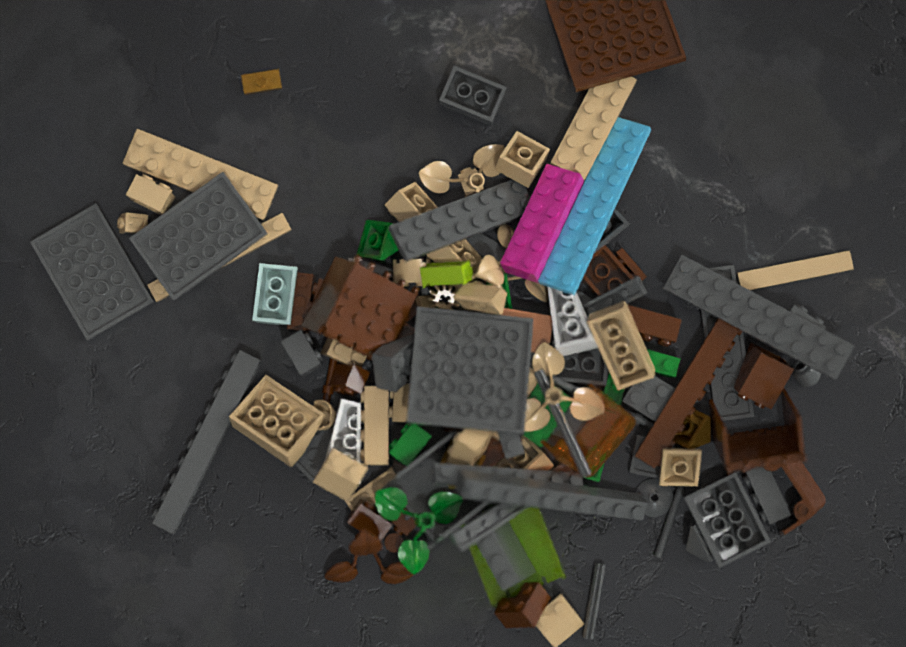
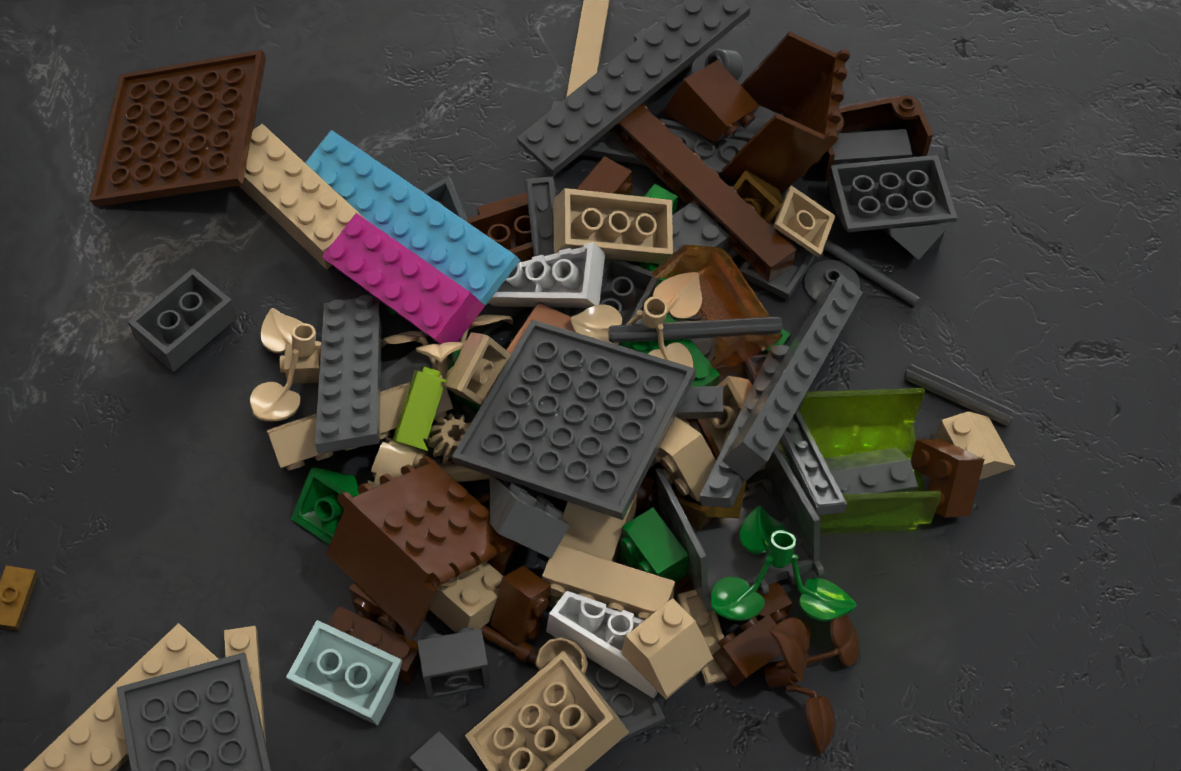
camera: 70 degrees left, 25 degrees down
(522, 159) = (302, 284): tan brick -> none

